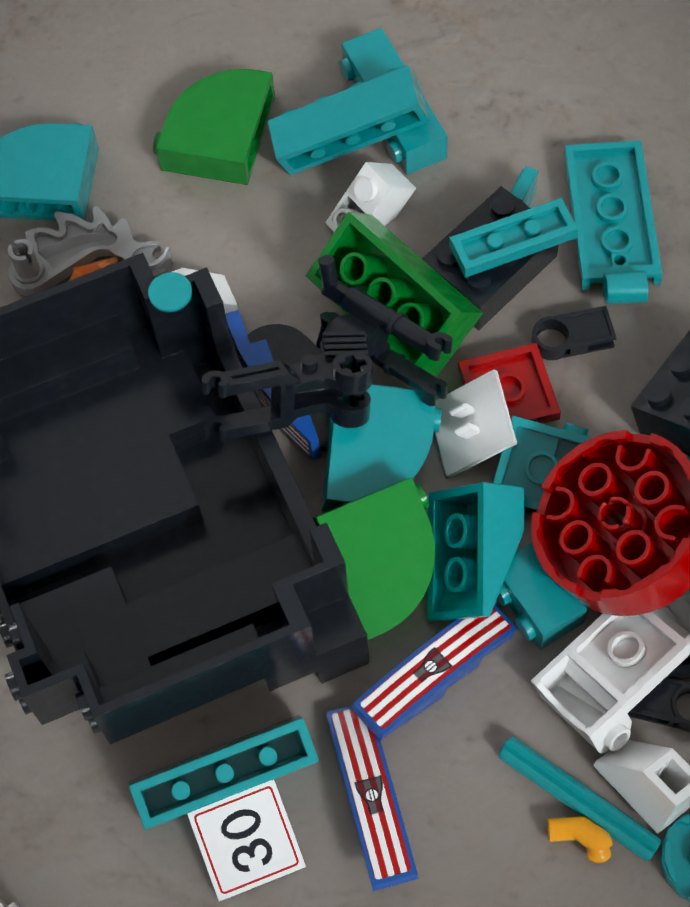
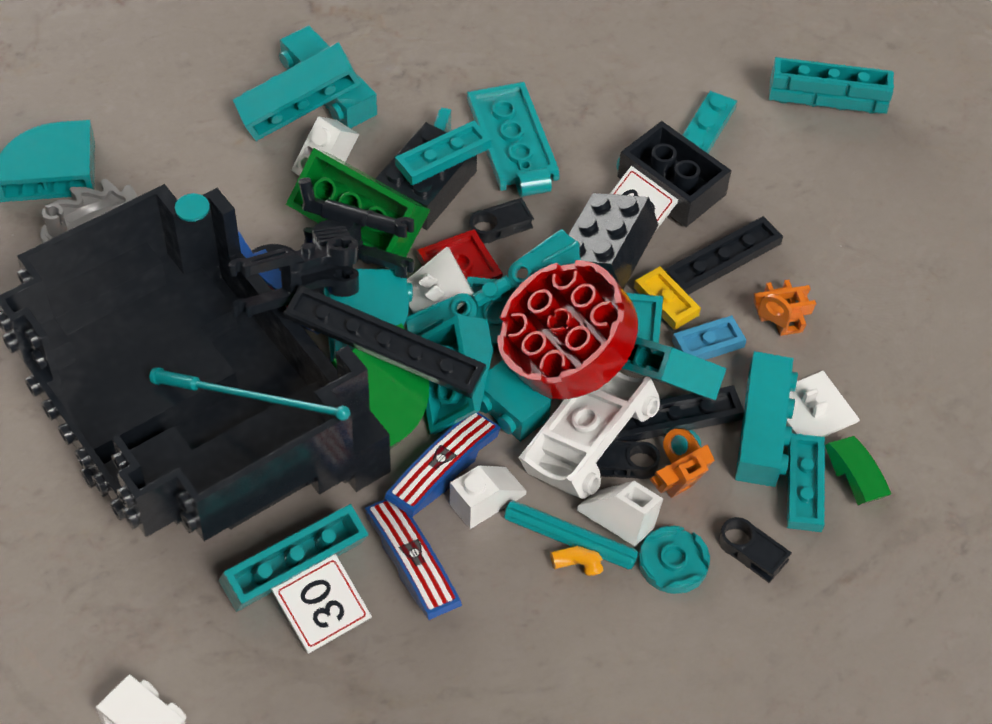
camera: 20 degrees left, 10 degrees down
(105, 498) = (160, 376): none -> teal piece
(217, 126) = (190, 111): green brick -> none
(386, 505) = (385, 341): none -> black tile
(480, 719) = (483, 493): none -> white slope
(629, 410) = (557, 248): none -> teal piece

